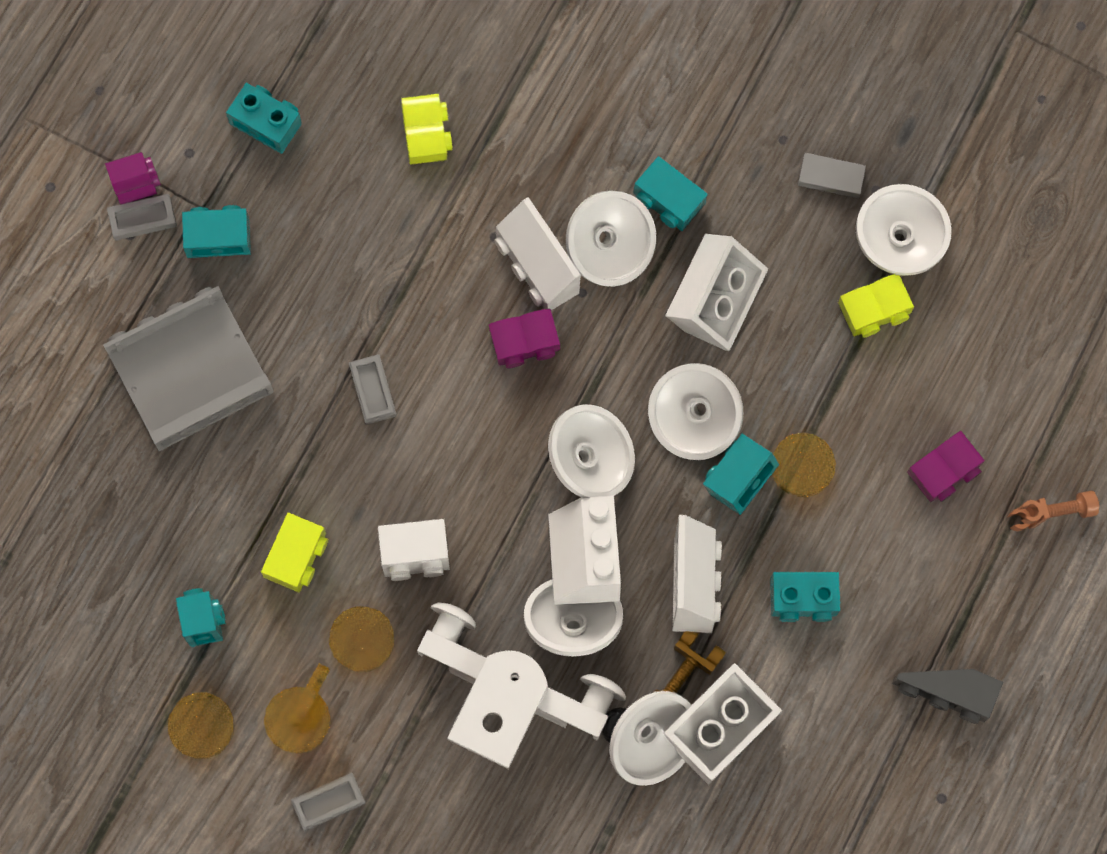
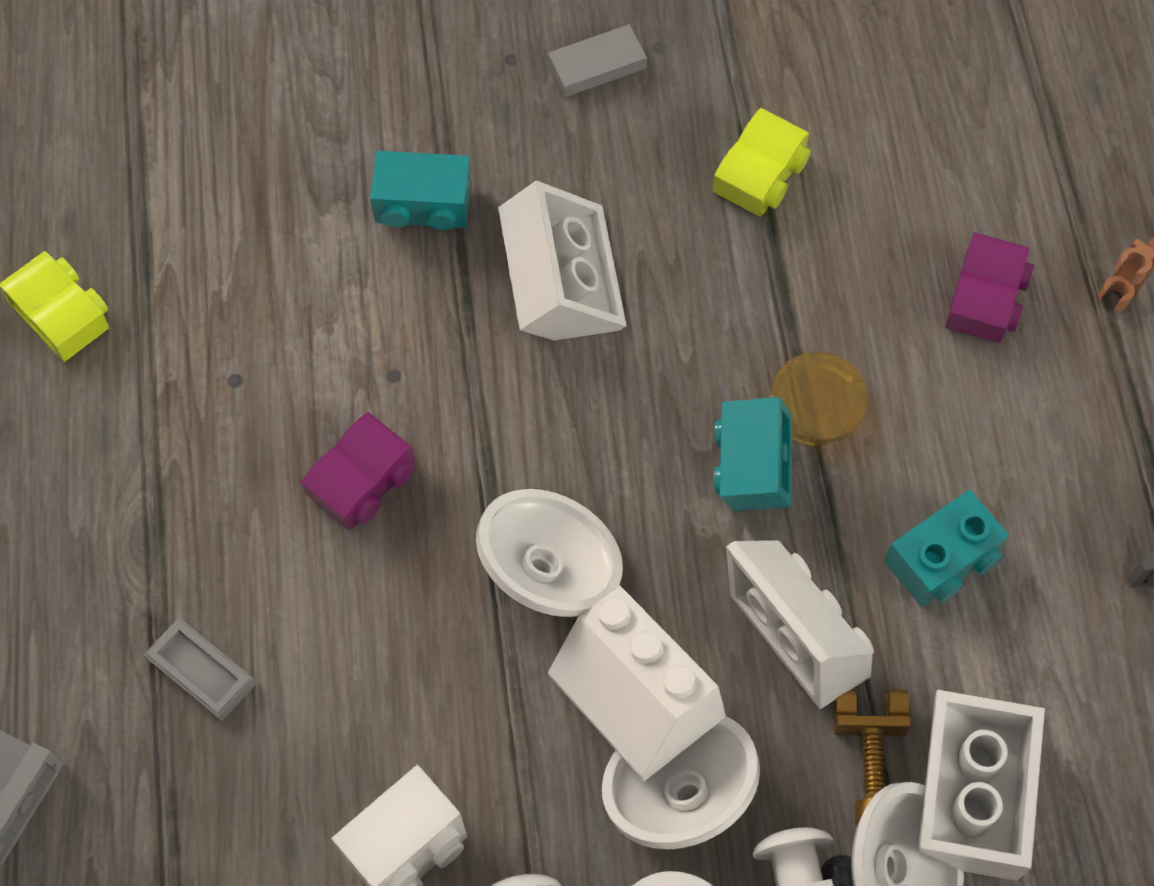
camera: 30 degrees left, 10 degrees down
(537, 256) = (307, 358): white slope -> none
(628, 239) = (400, 266): white dish -> none
(679, 423) = (635, 451): white dish -> none
(906, 212) = (731, 42): white dish -> none

